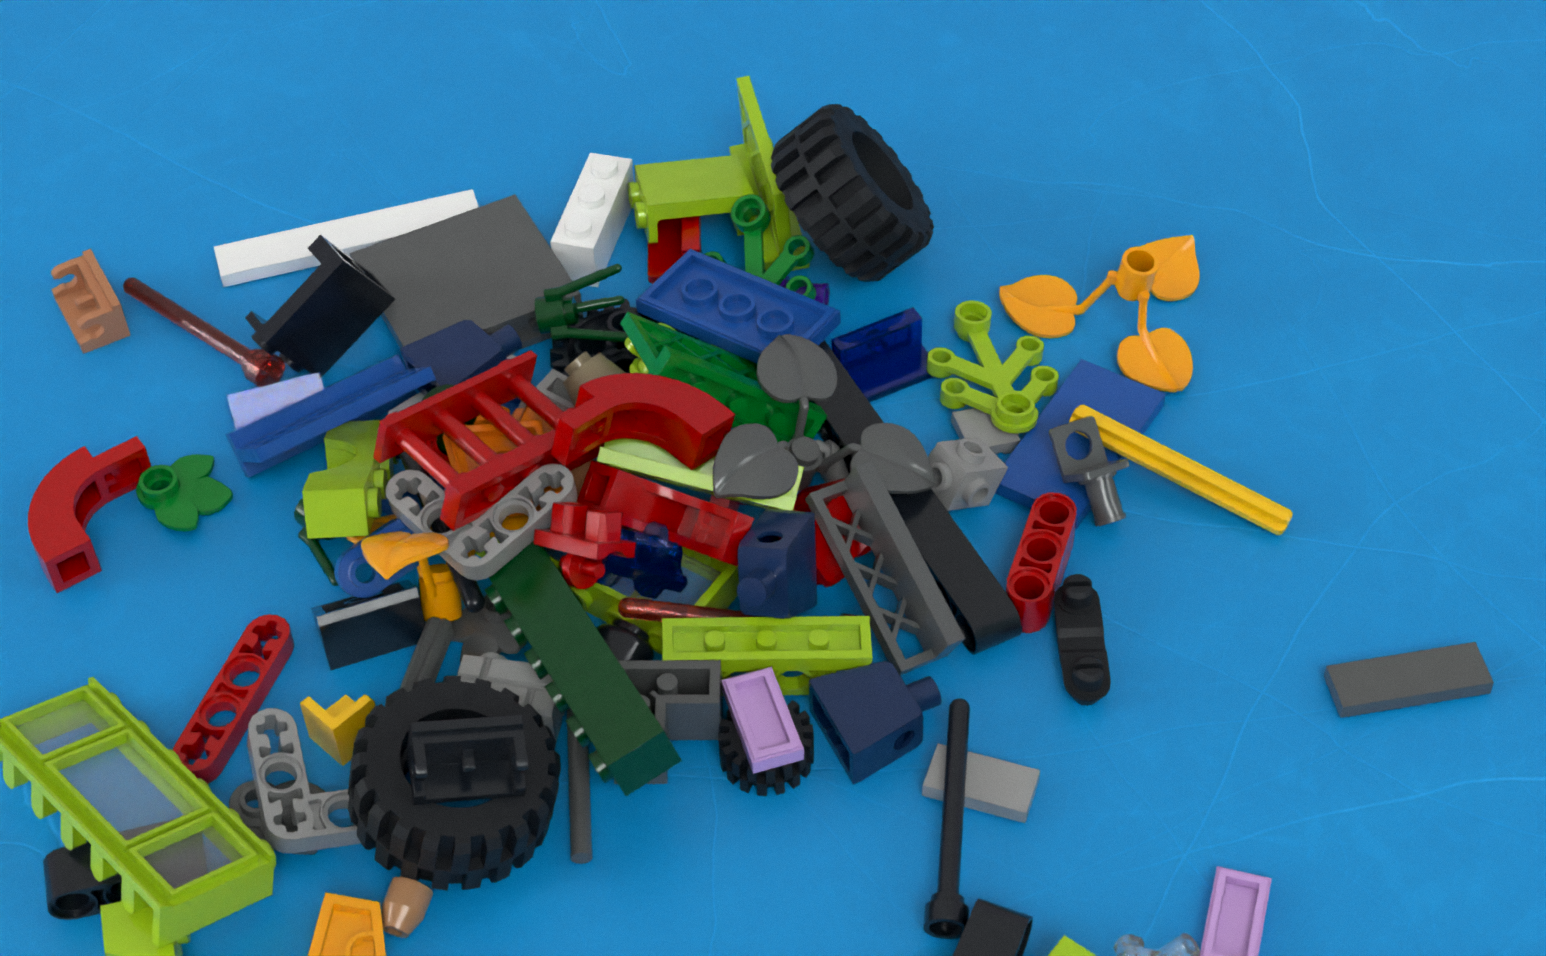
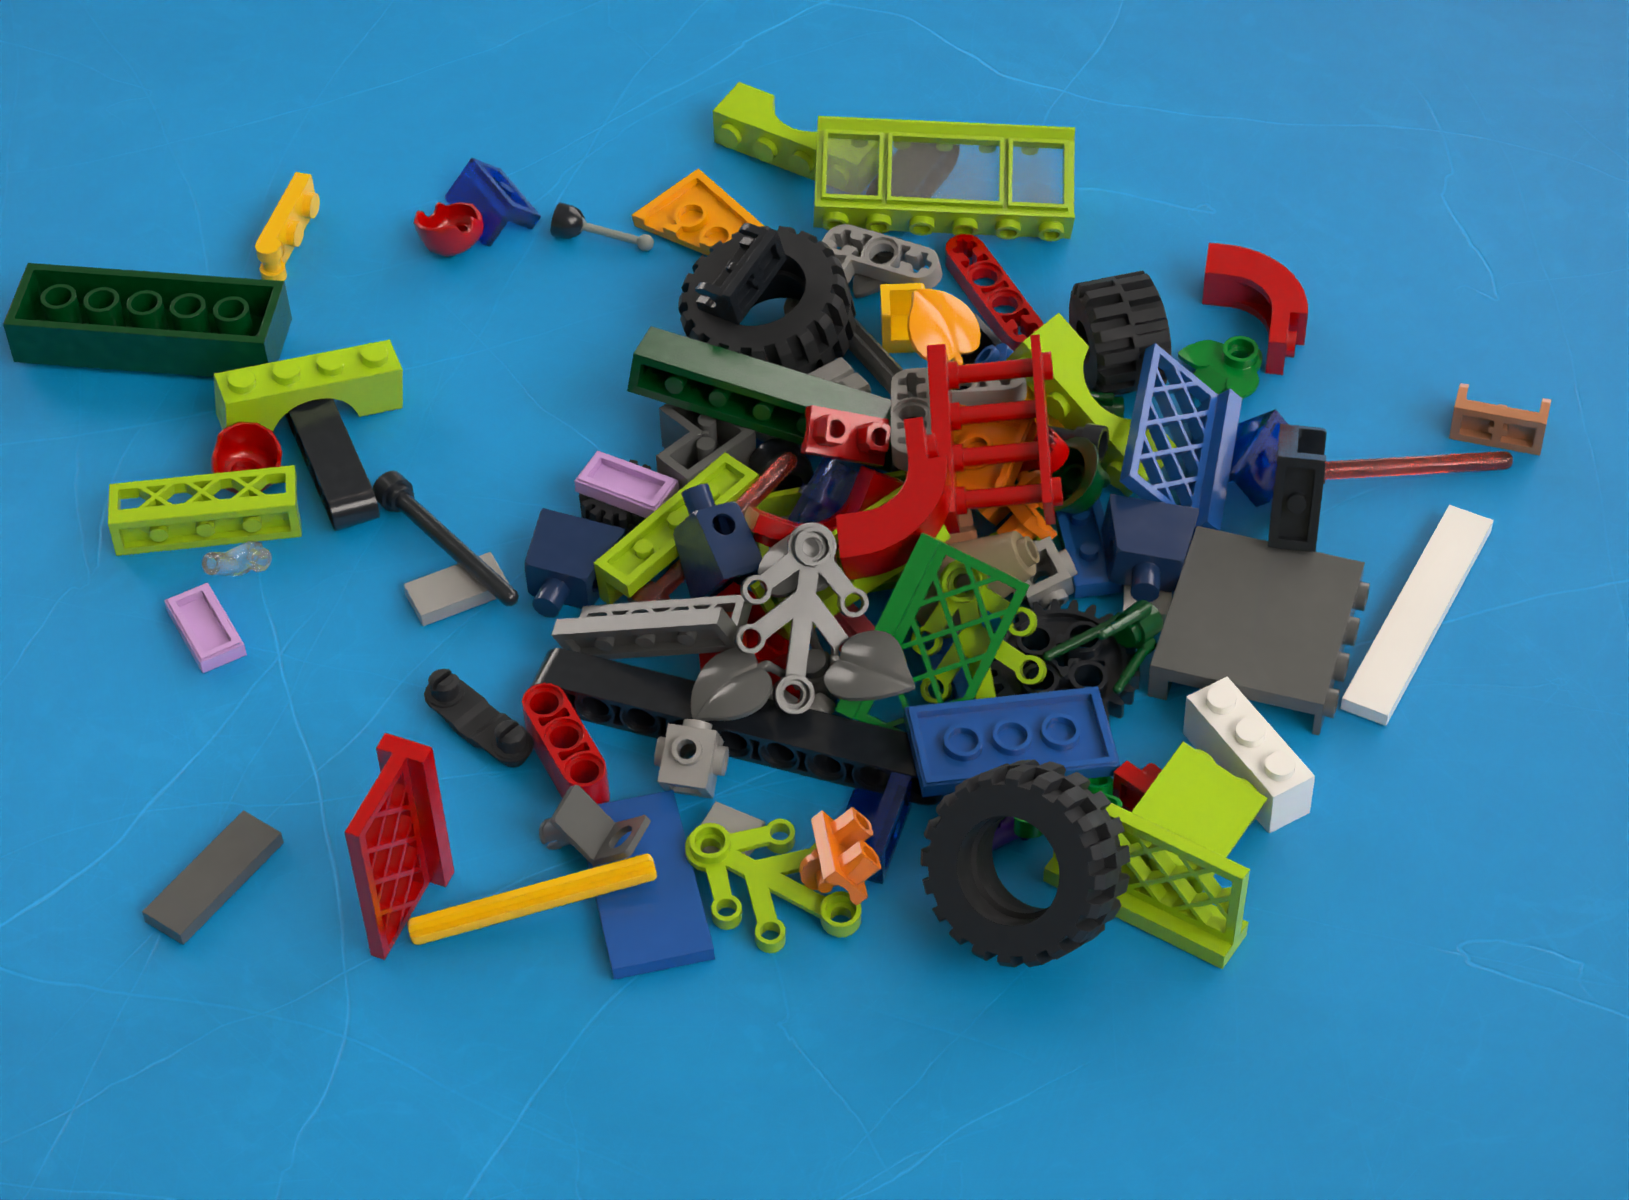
camera: 135 degrees right, 0 degrees up
(237, 524) = (1118, 322): none -> black wheel
(818, 441) = (802, 608): none -> plant
(931, 332) = (840, 855): none -> orange hips
(1164, 267) = (744, 1106): light orange plant -> none
(1245, 499) = (398, 840): none -> red fence

